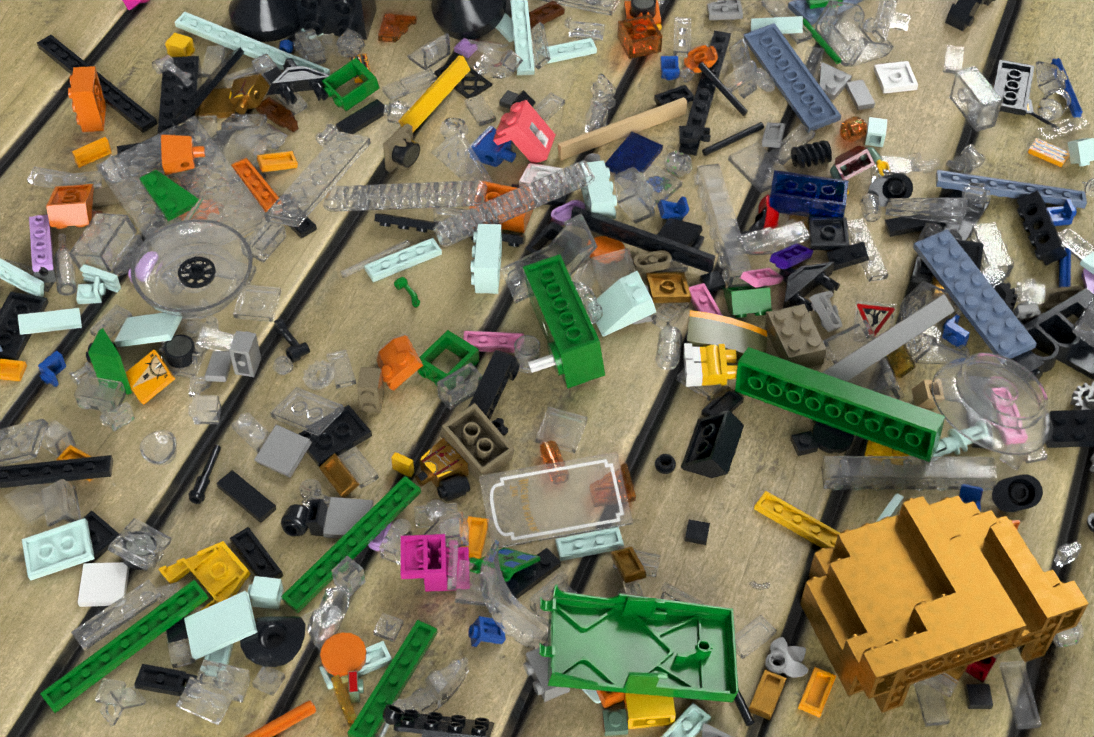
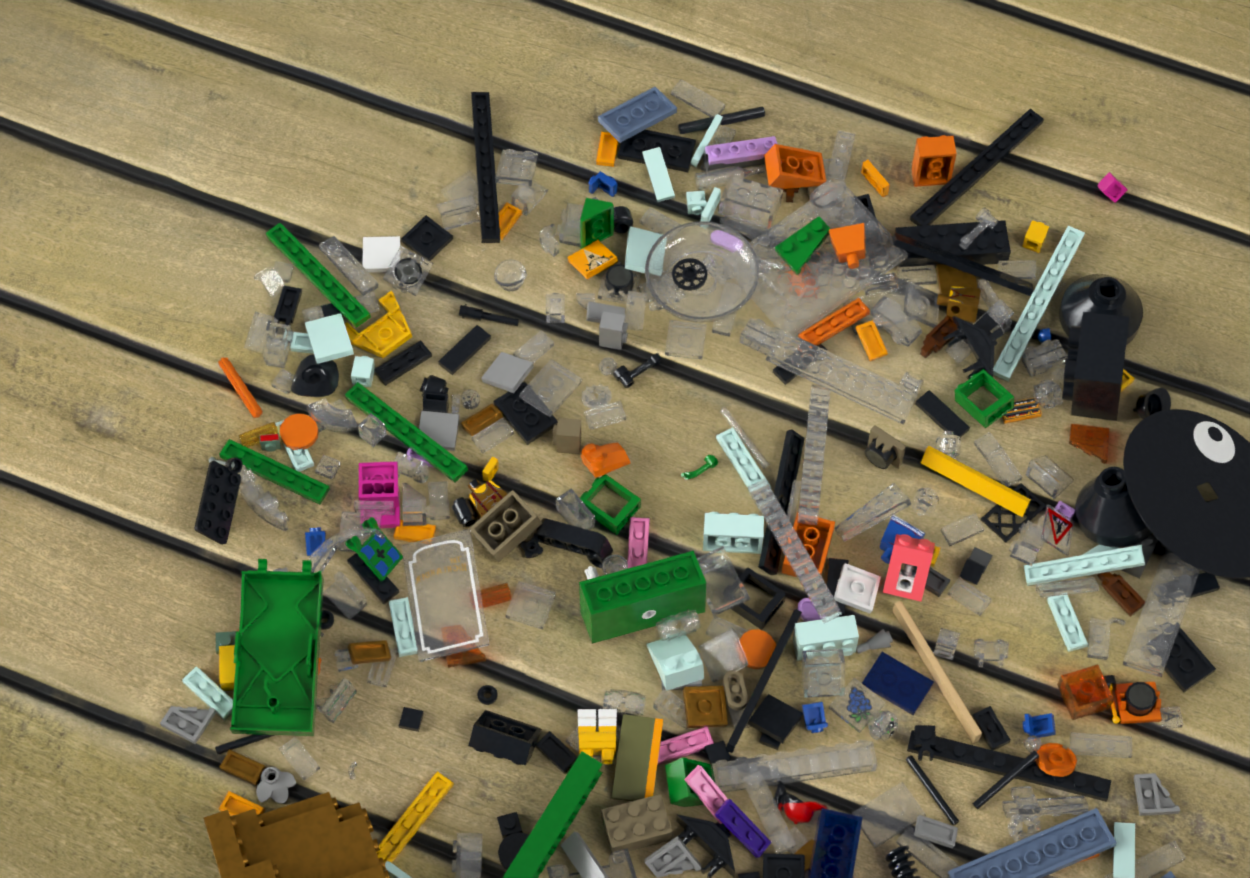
camera: 90 degrees right, 10 degrees up
(57, 549) = (413, 216): light aqua tile -> none

